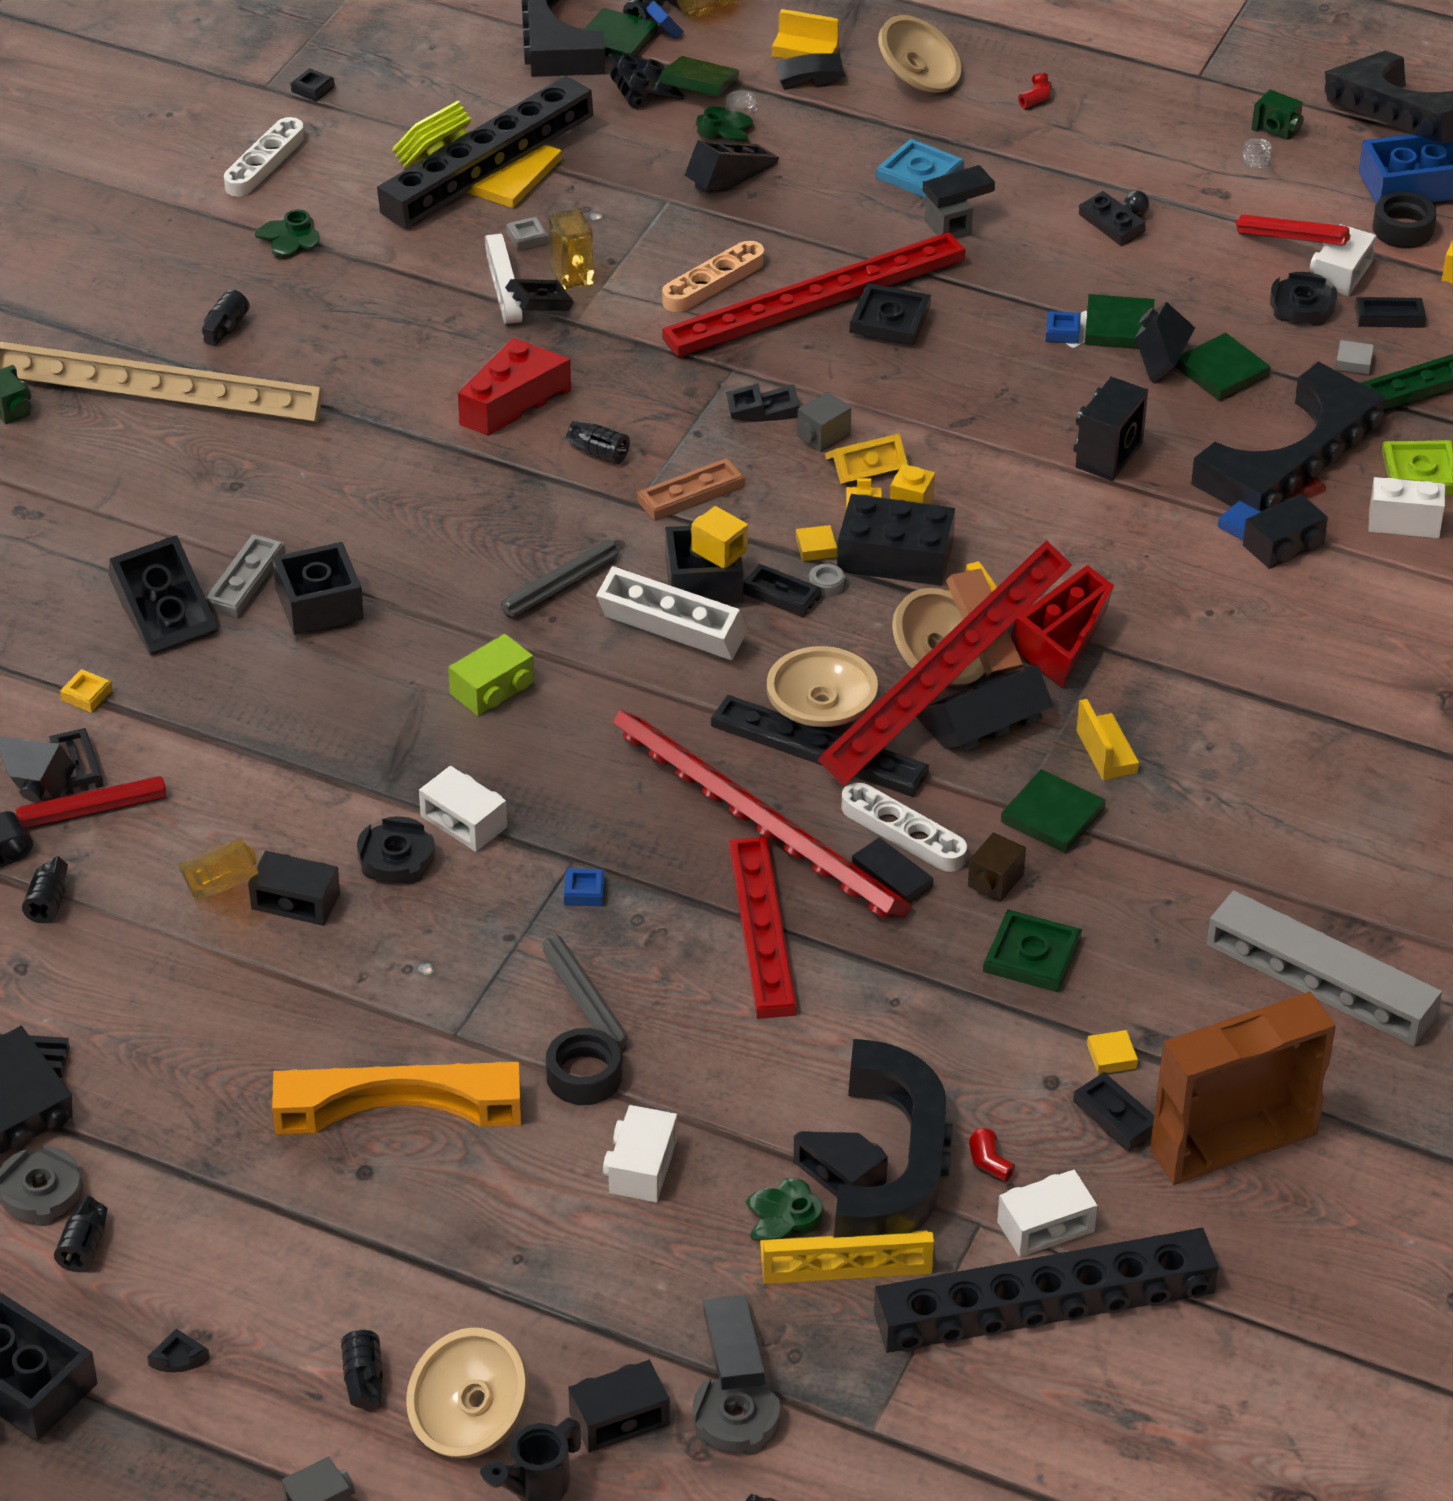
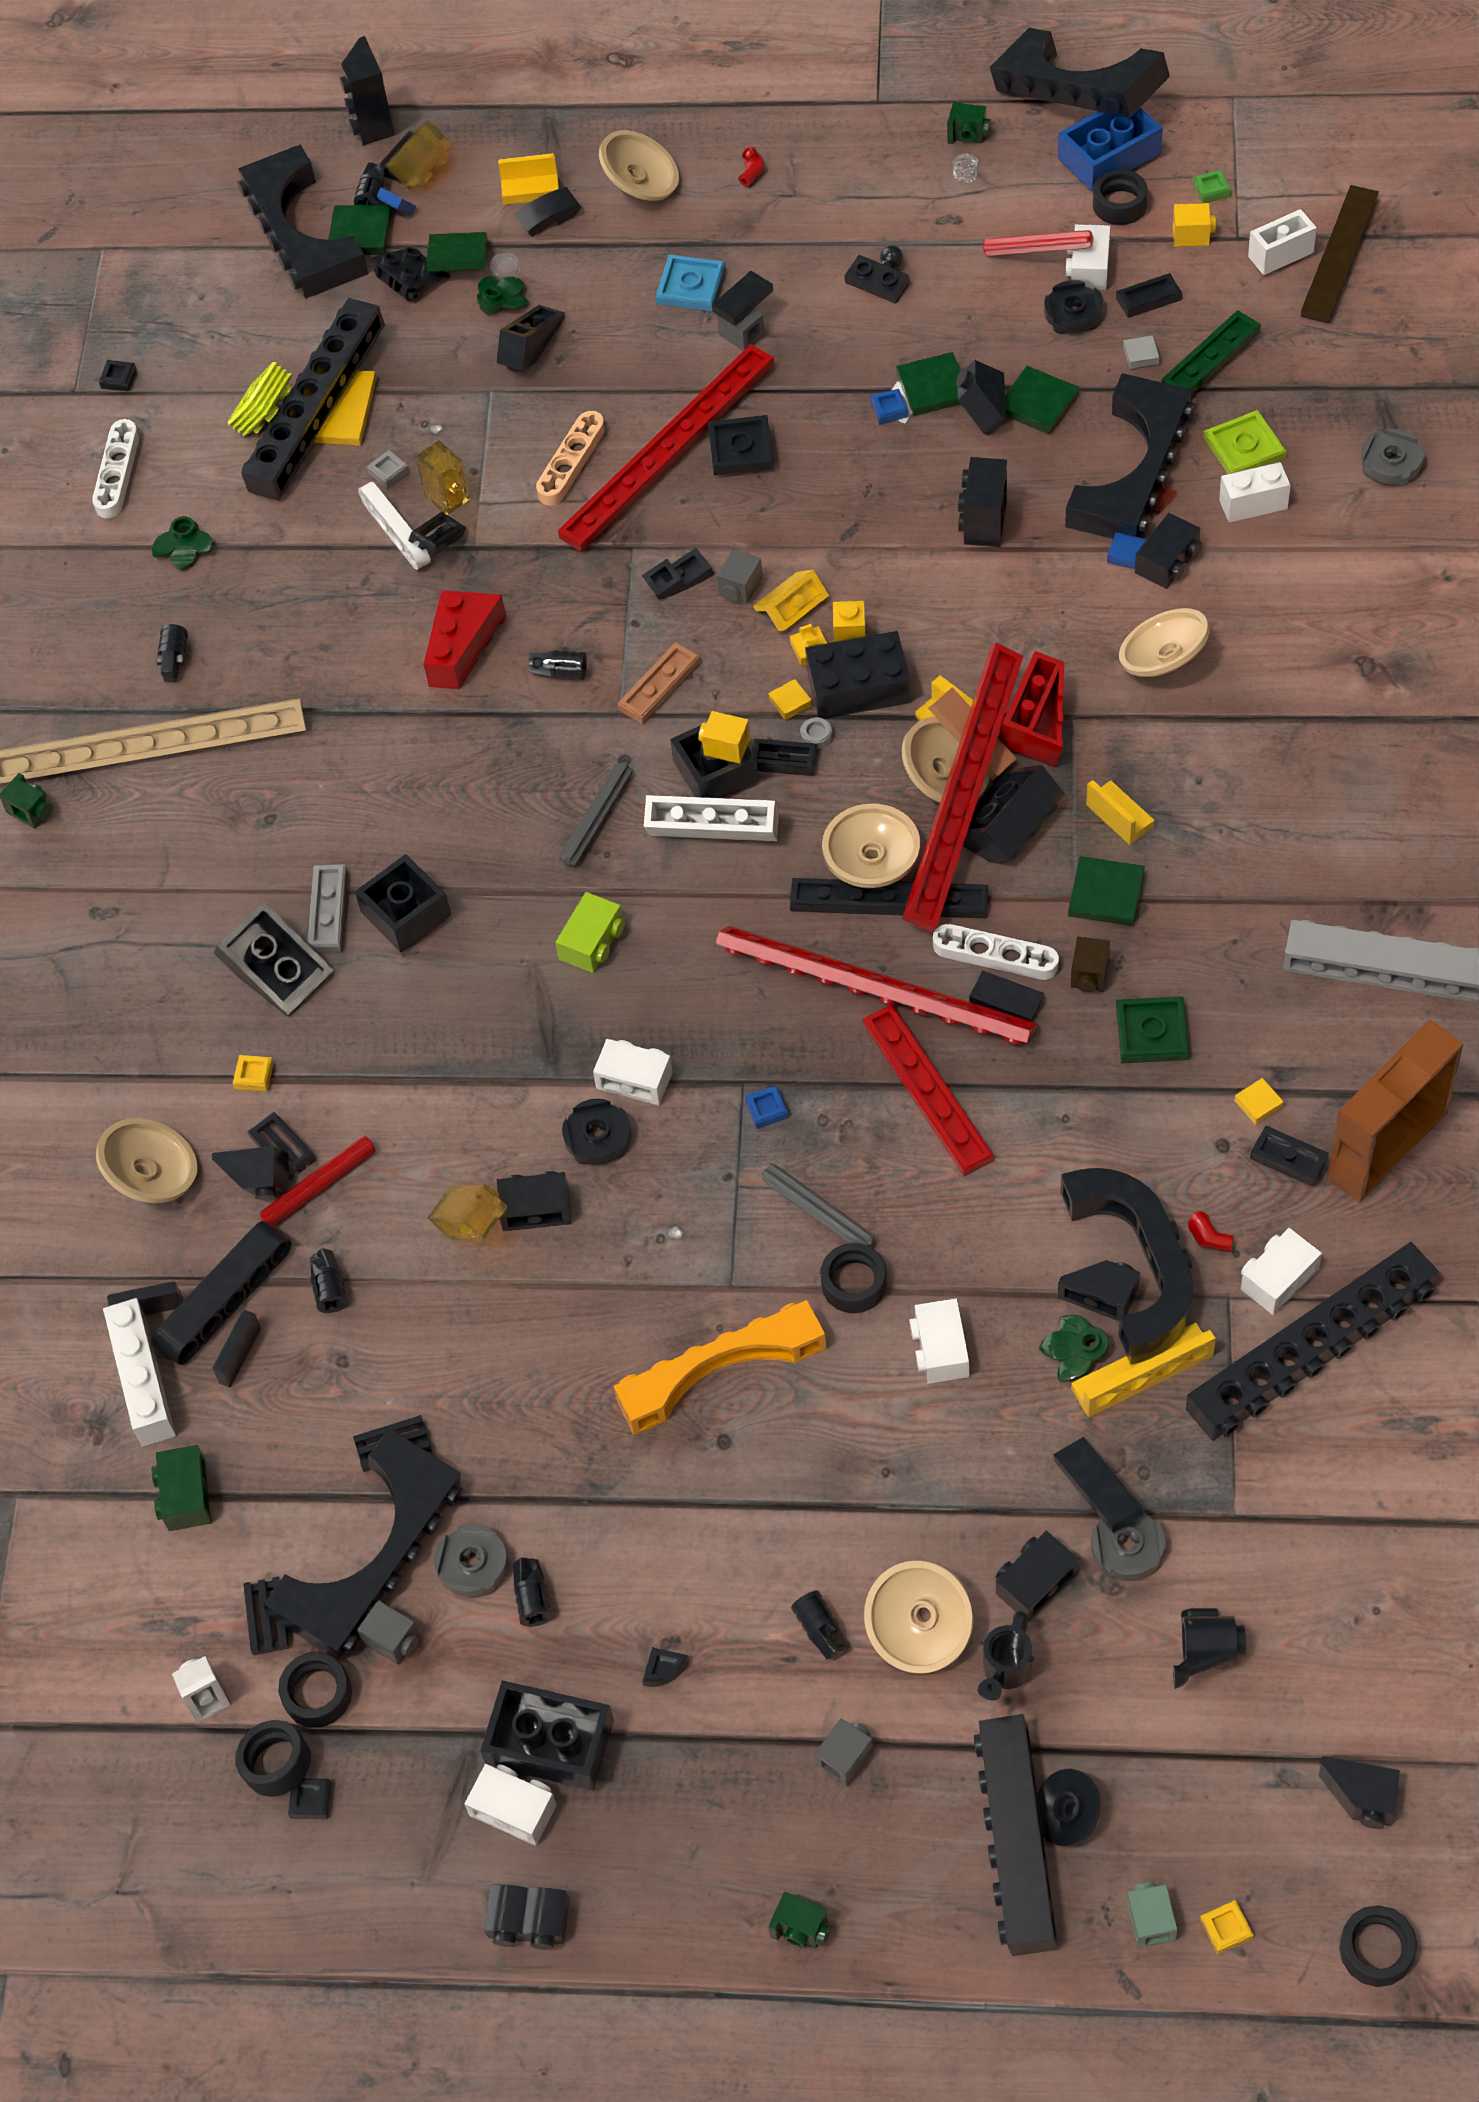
camera: 15 degrees left, 15 degrees up
(1234, 609) = (1164, 642): none -> tan dish

